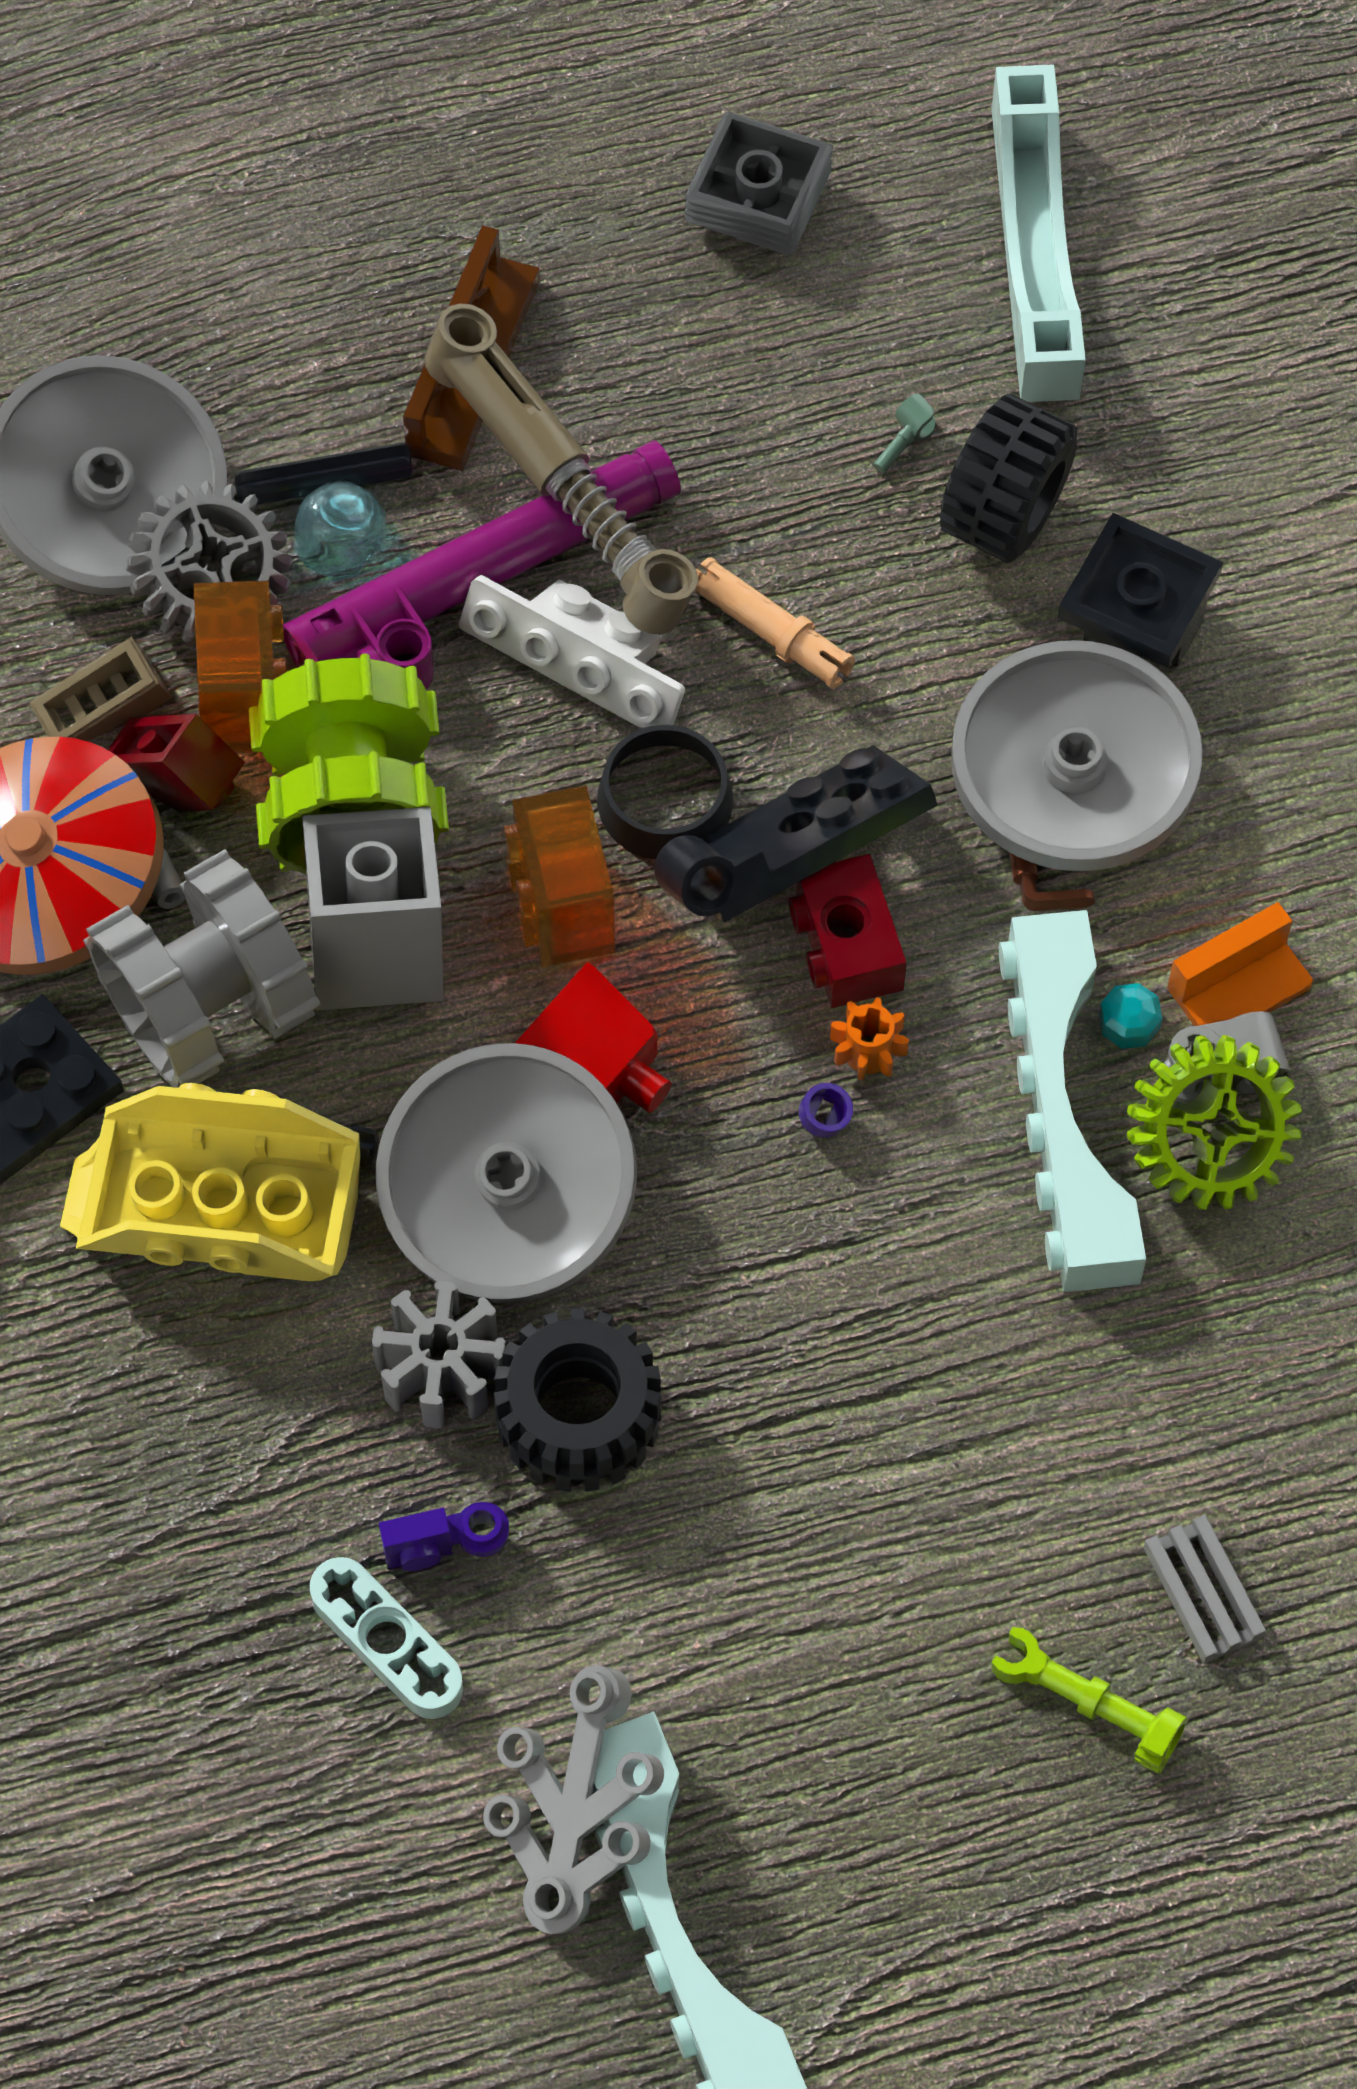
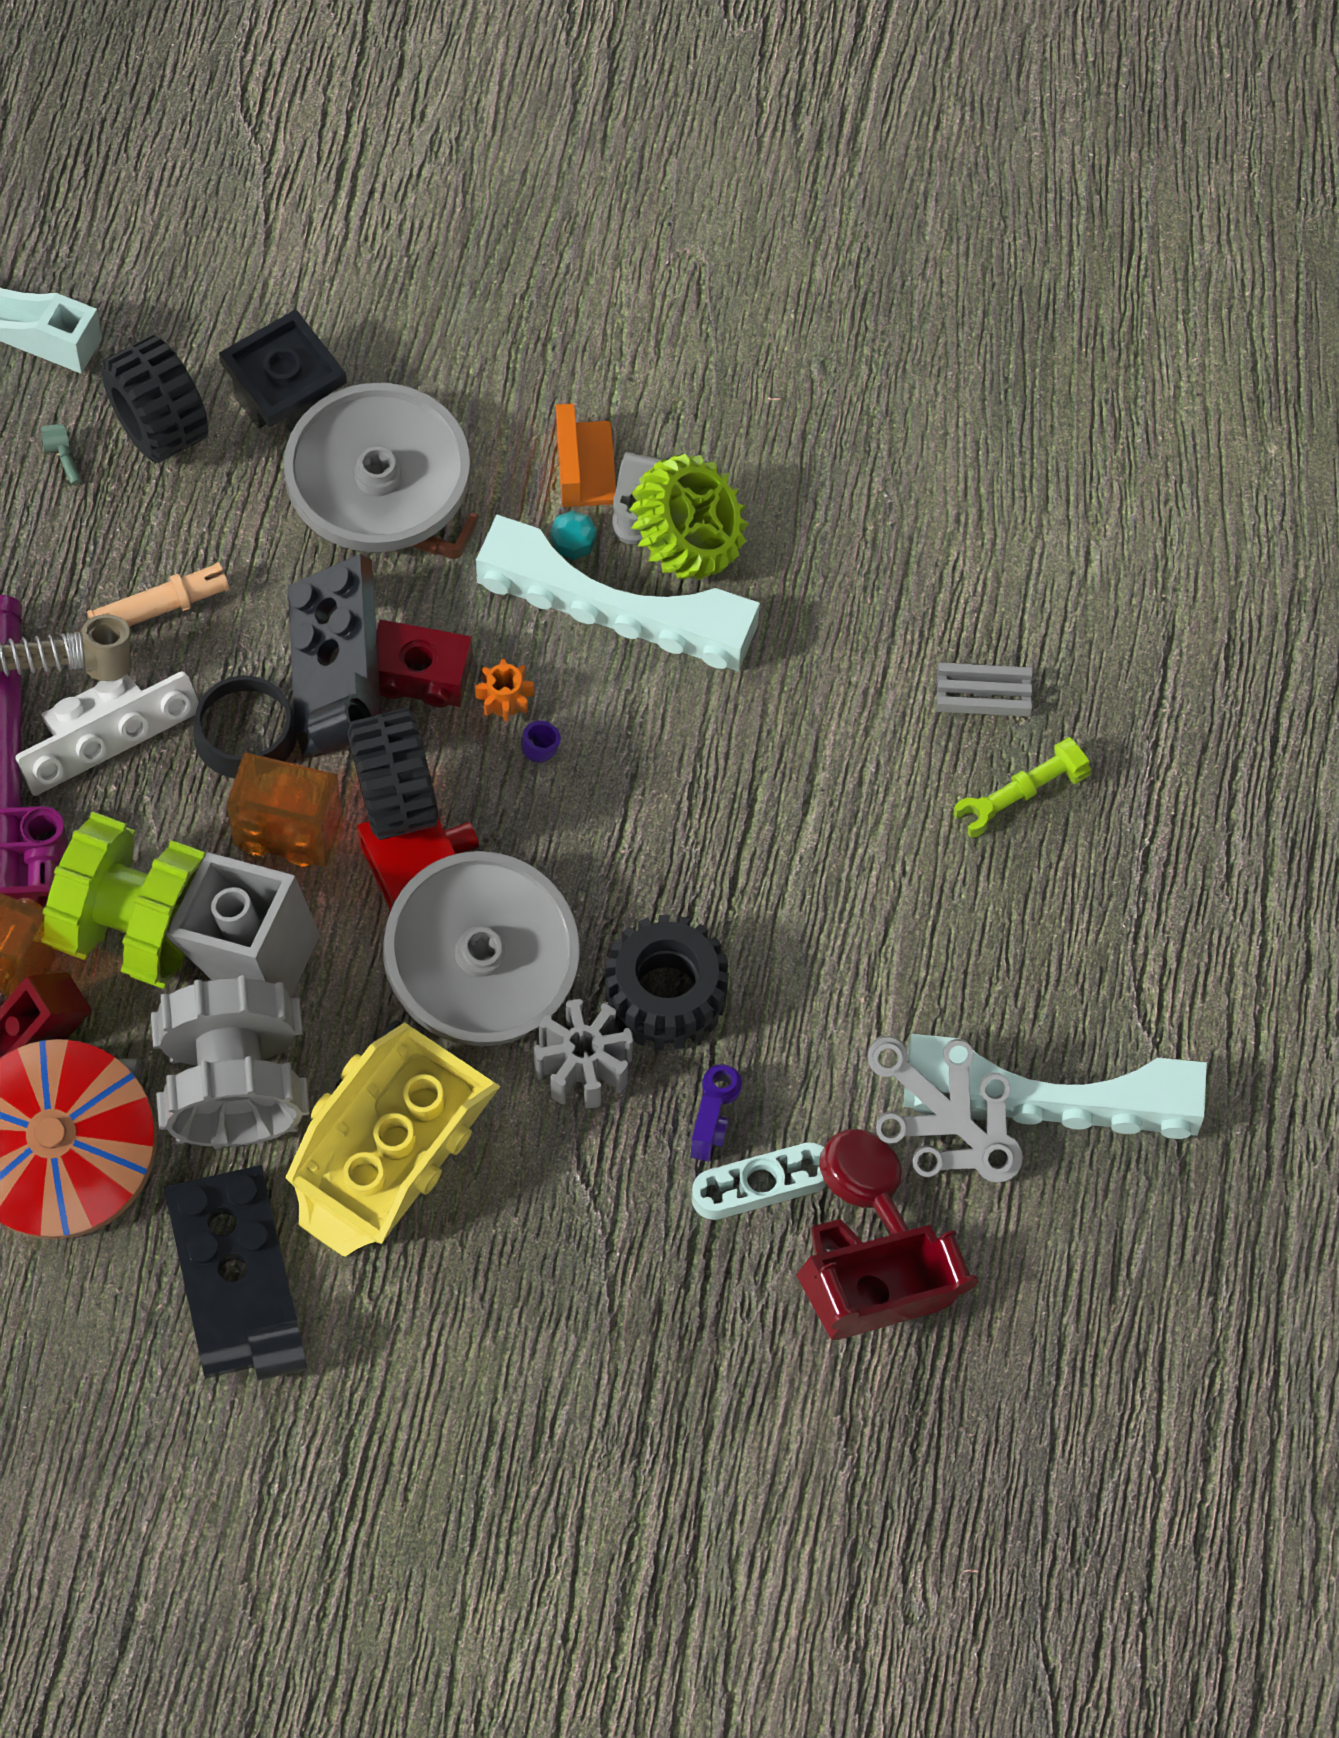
camera: 65 degrees left, 0 degrees up
(312, 1835) = (882, 1279): none -> dark red piece
(643, 951) = (393, 773): none -> black tyre

